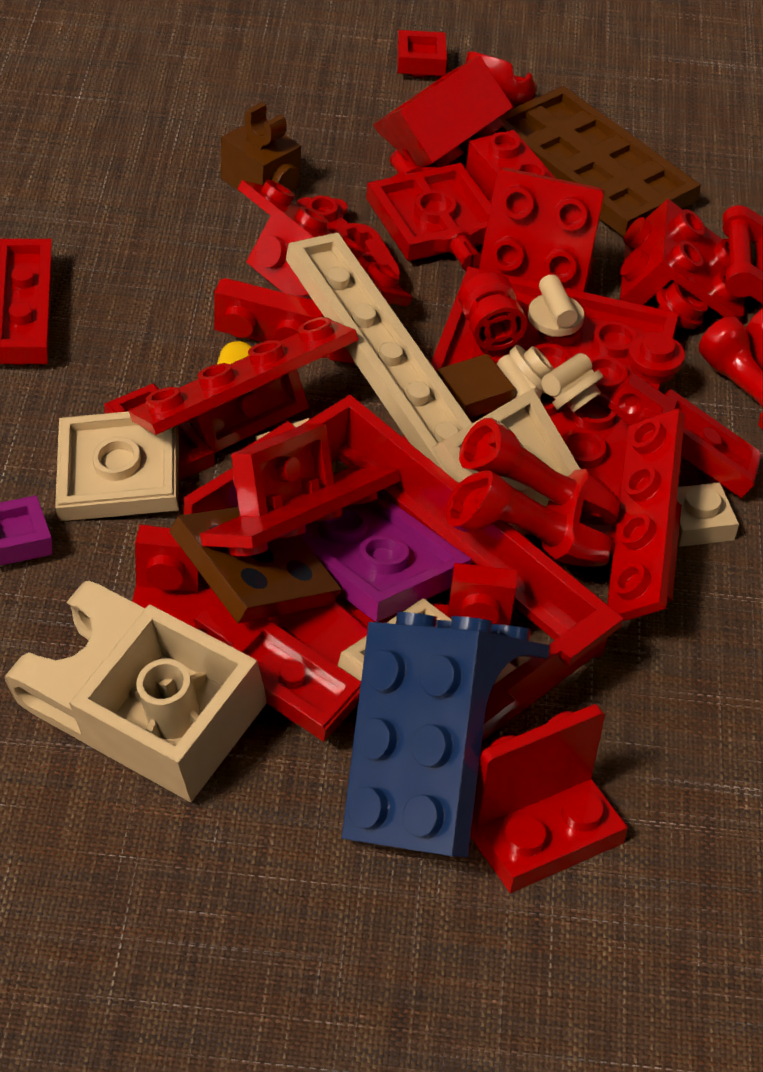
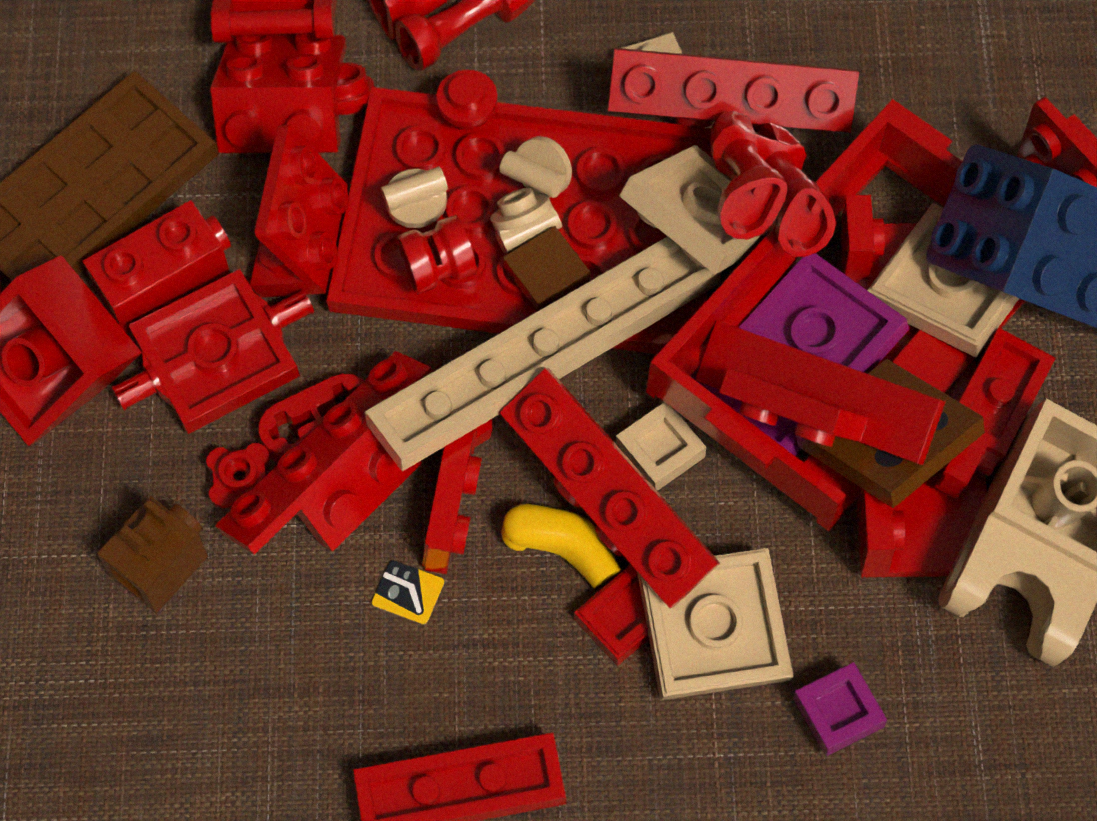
camera: 90 degrees left, 20 degrees up
(198, 306) = (408, 592): none -> sticker
(705, 443) = (575, 68): red hinge -> none

